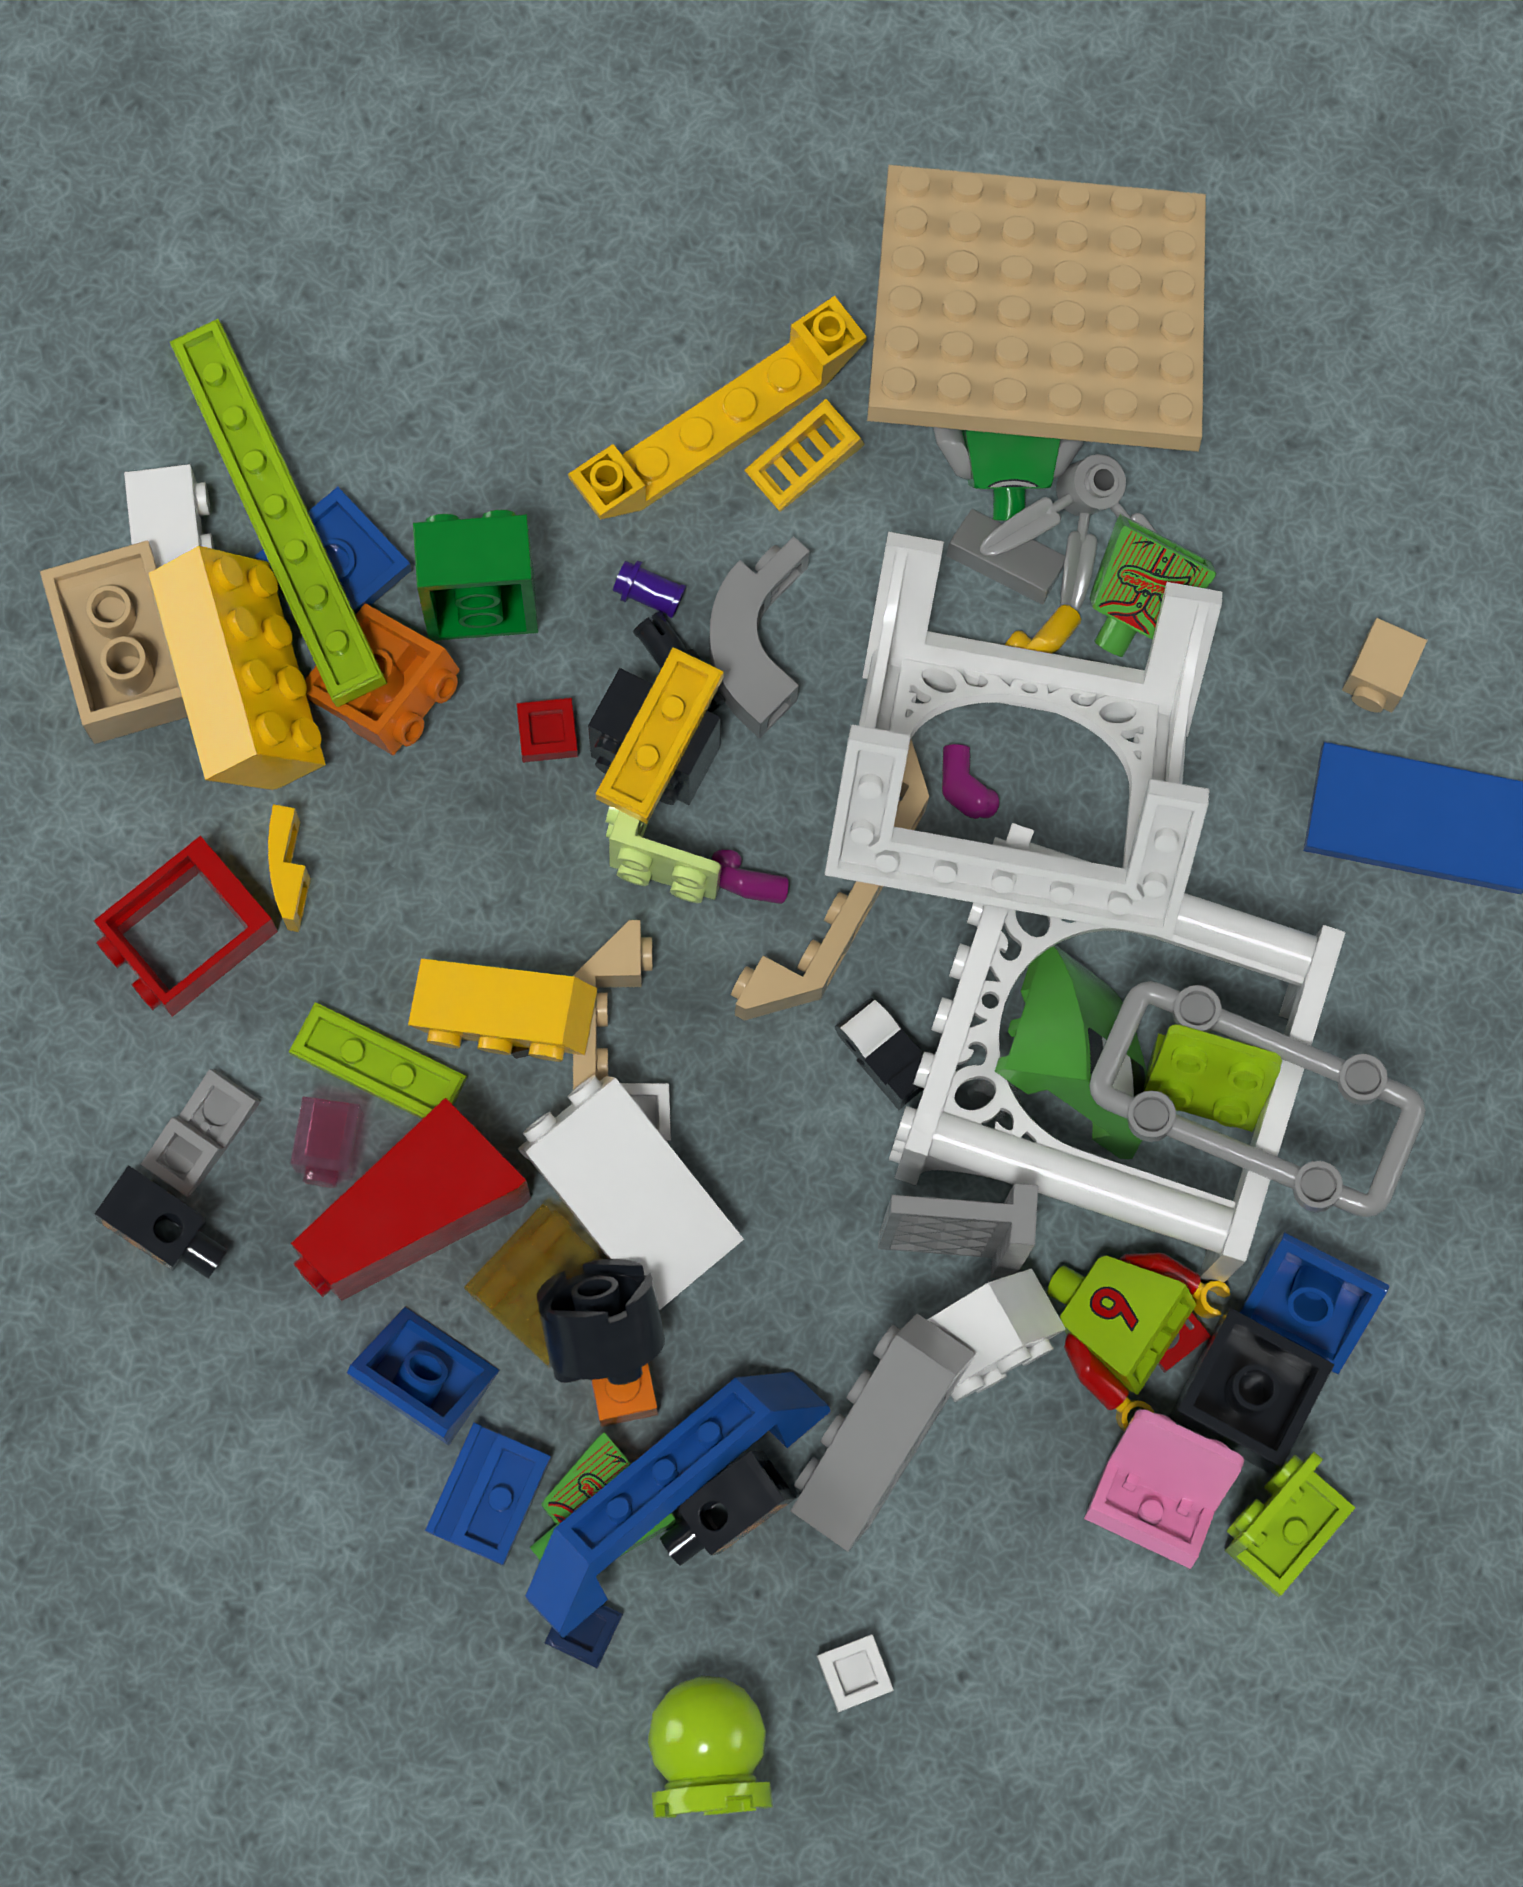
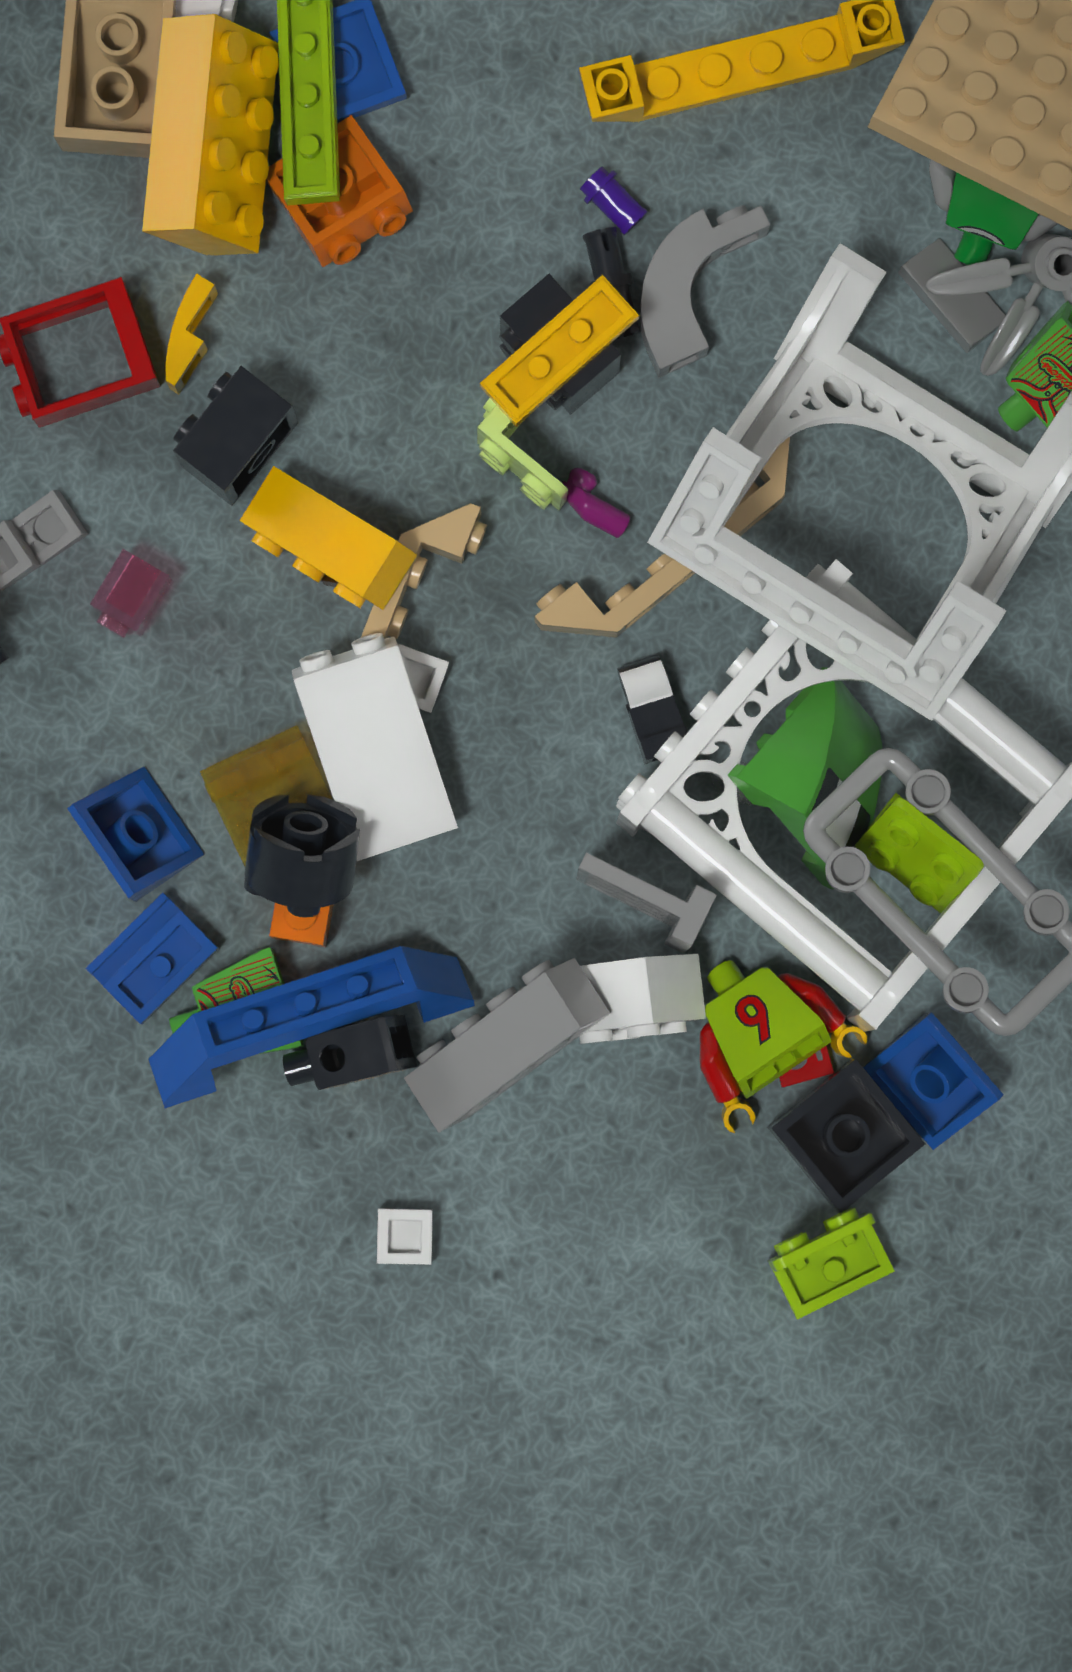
camera: 25 degrees right, 10 degrees up
(370, 942) = (234, 434): none -> black brick
(375, 1063) = (202, 543): lime tile -> none
(410, 1204) = (178, 682): red slope -> none
(475, 575) = (455, 133): green brick -> none
(547, 730) = (469, 297): red plate -> none
(590, 1638) = (191, 1116): dark blue tile -> none
(707, 1746) = (252, 1248): lime tile -> none
(832, 458) = (853, 133): yellow slope -> none
(962, 789) = (821, 497): magenta arm -> none
(1052, 634) = (961, 386): yellow arm -> none
(1163, 1486) = (733, 1188): bright pink bracket -> none

